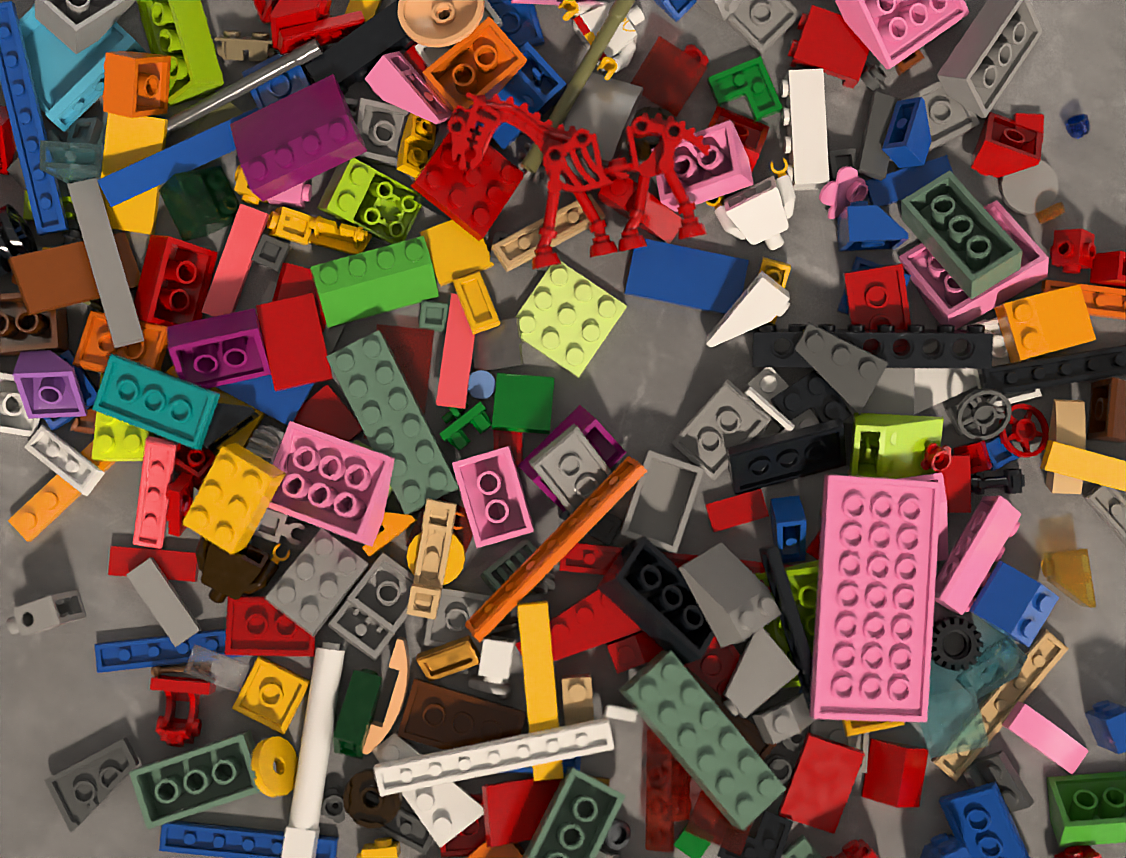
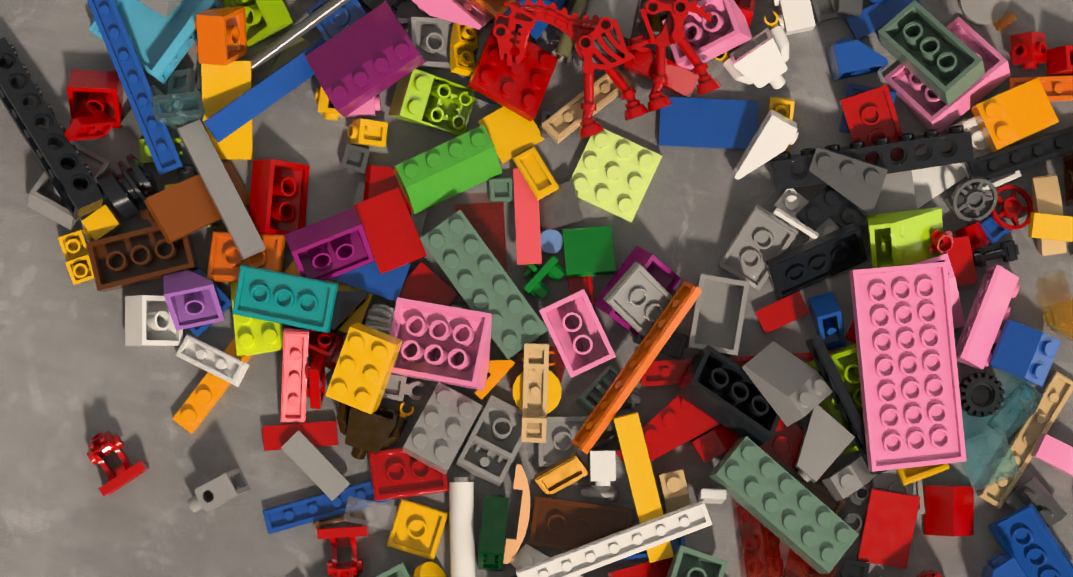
camera: 10 degrees left, 0 degrees up
(85, 424) = (224, 328): dark orange tile -> none
(200, 202) = (289, 125): clear green slope -> none
(235, 261) = (327, 171): coral tile -> none
(336, 237) = (411, 137): yellow hinge -> none
(843, 191) = (828, 31): bright pink plate -> none

